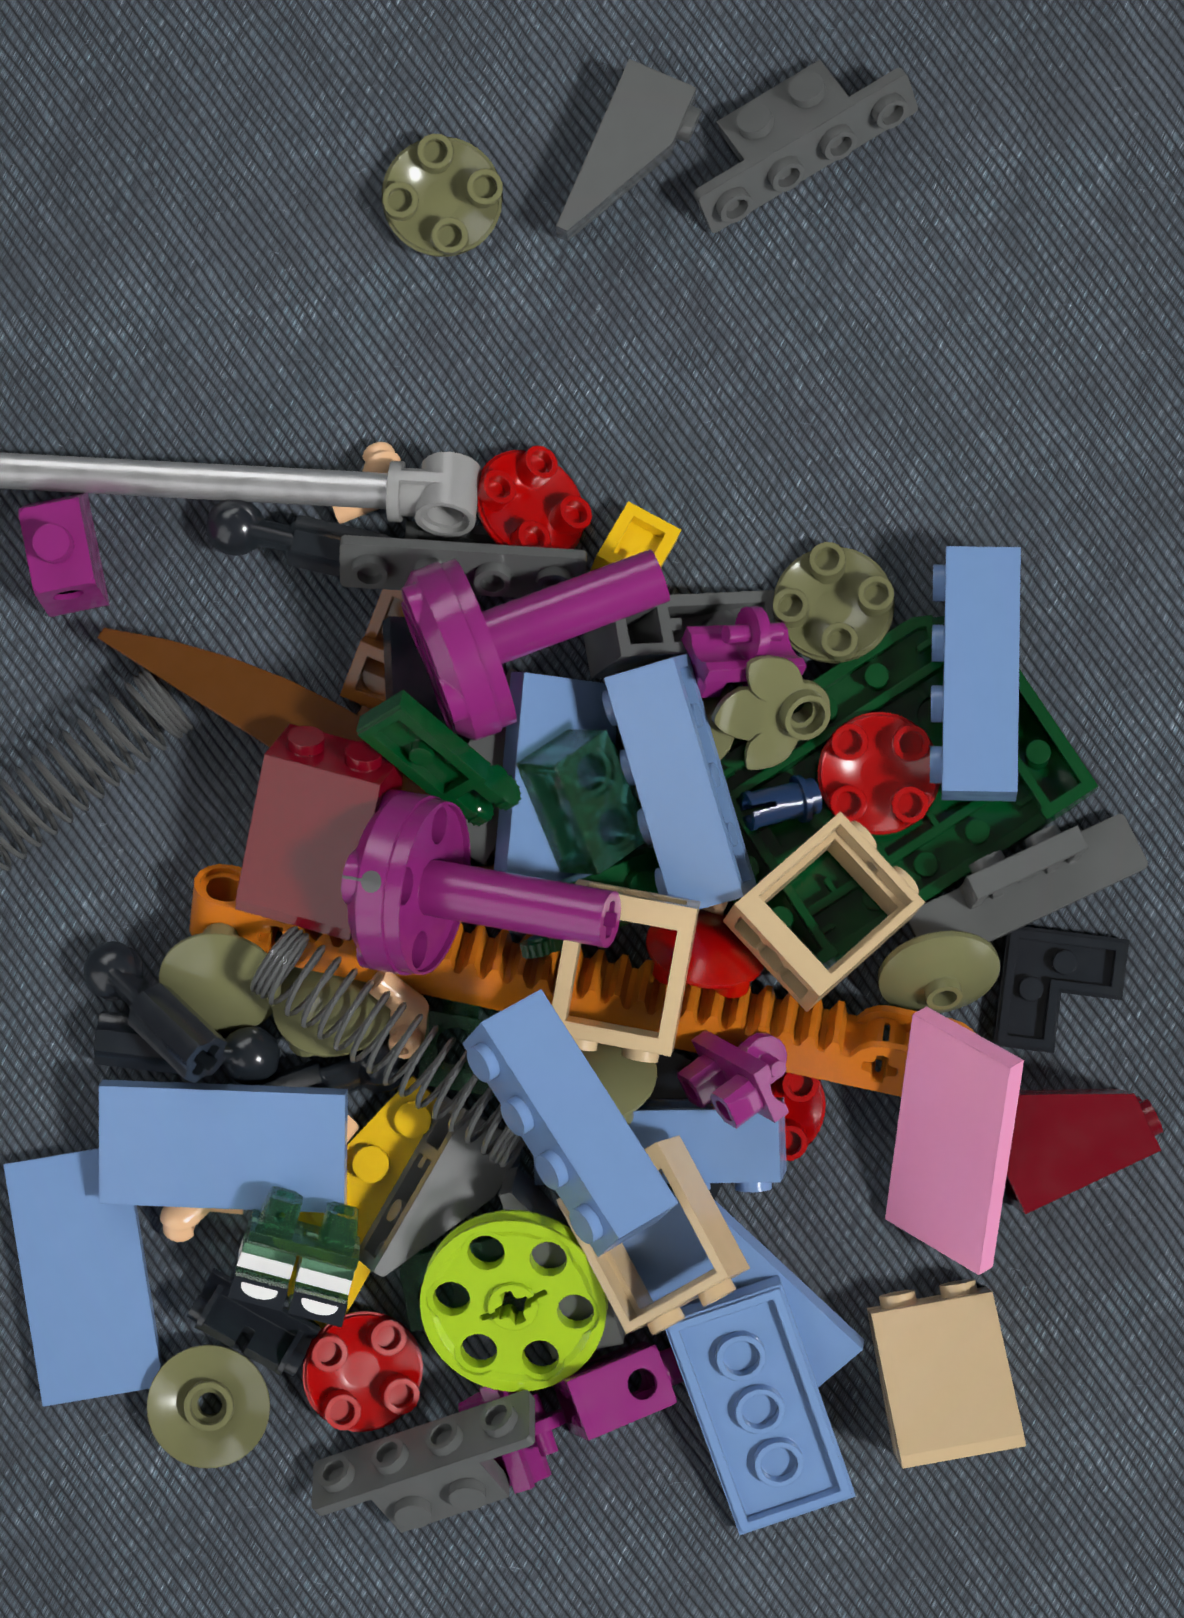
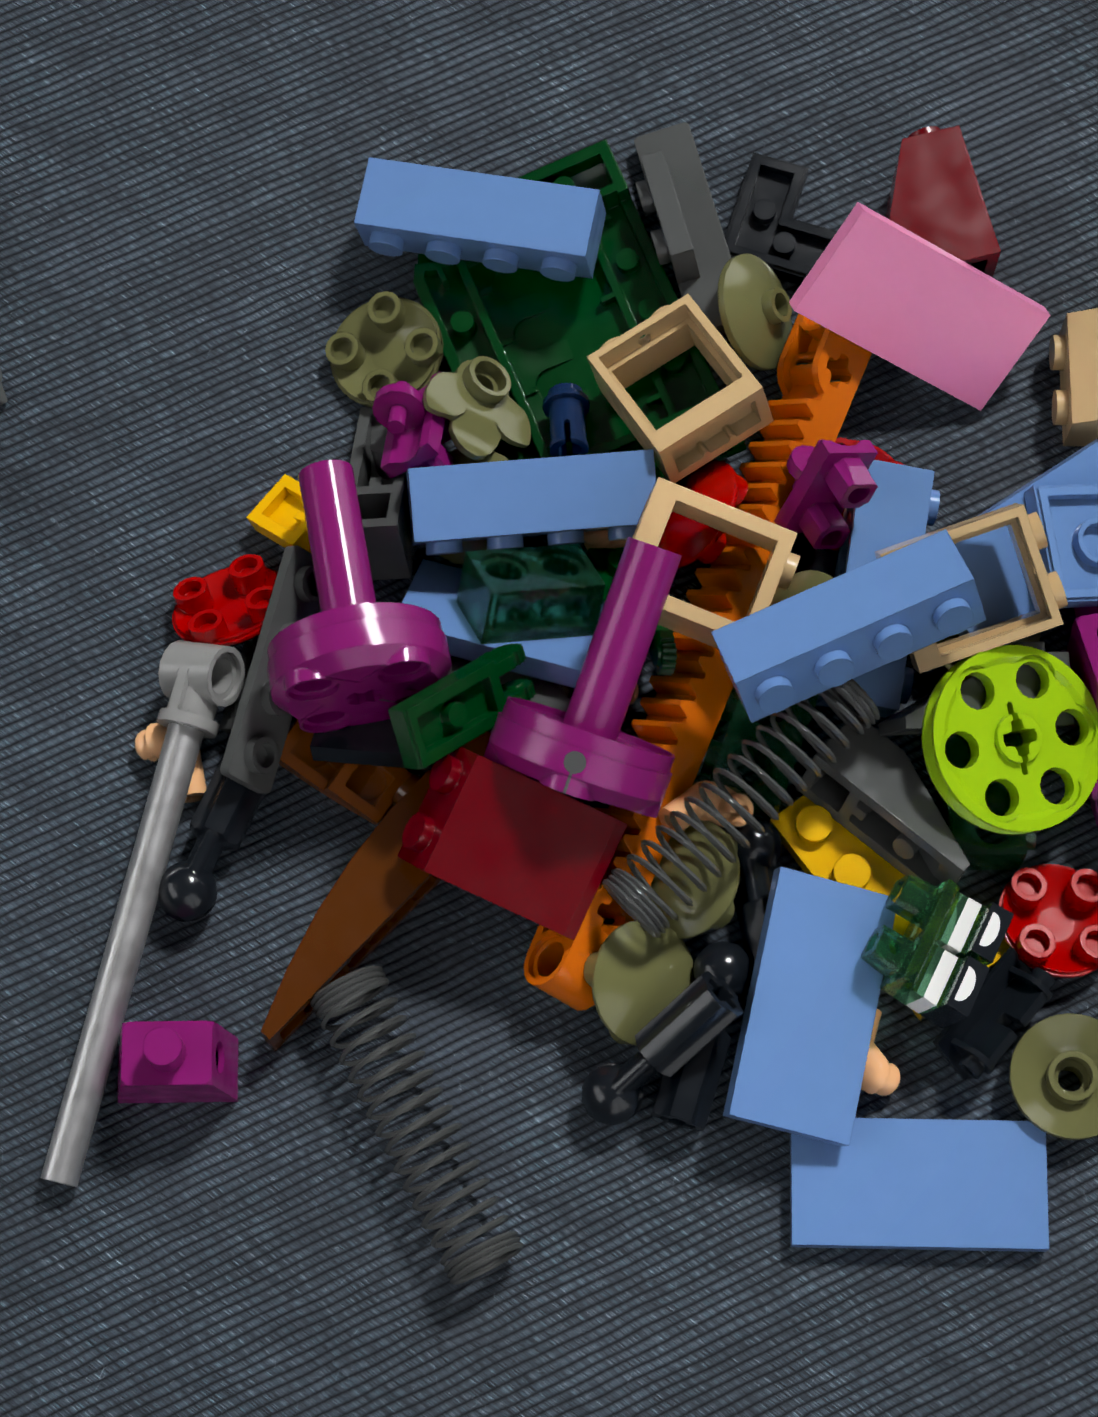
camera: 80 degrees left, 15 degrees down
(878, 772) = (552, 329): red dish -> none

